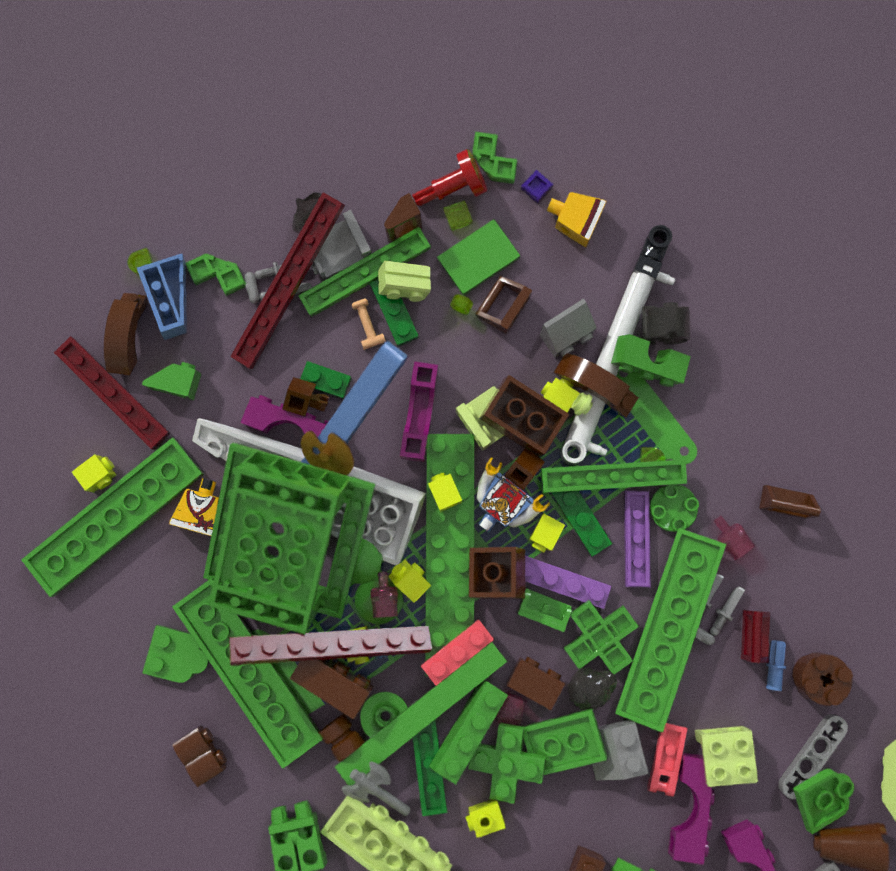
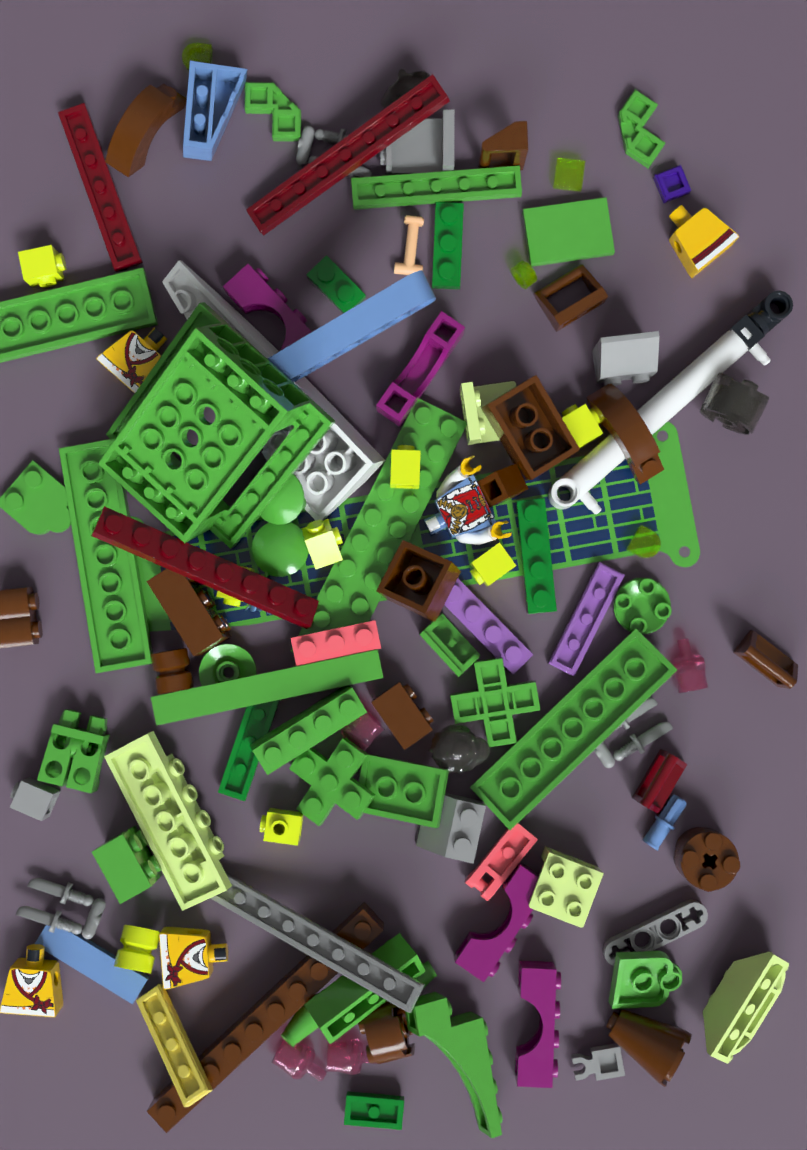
camera: 20 degrees right, 5 degrees up
(175, 380) = (174, 207): bright green slope -> none
(301, 397) = (301, 291): reddish brown brick -> none
(333, 455) = (305, 367): pearl gold piece -> none
(371, 784) = (180, 732): light grey piece -> none
(384, 598) = (286, 549): clear pink piece -> none
(404, 280) = (474, 217): yellowish green brick -> none
(466, 175) = (602, 133): red piece -> none
(582, 404) = (599, 445): yellowish green plate -> none
(613, 476) = (594, 539): bright green plate -> none
(632, 355) = (680, 421): bright green arch -> none

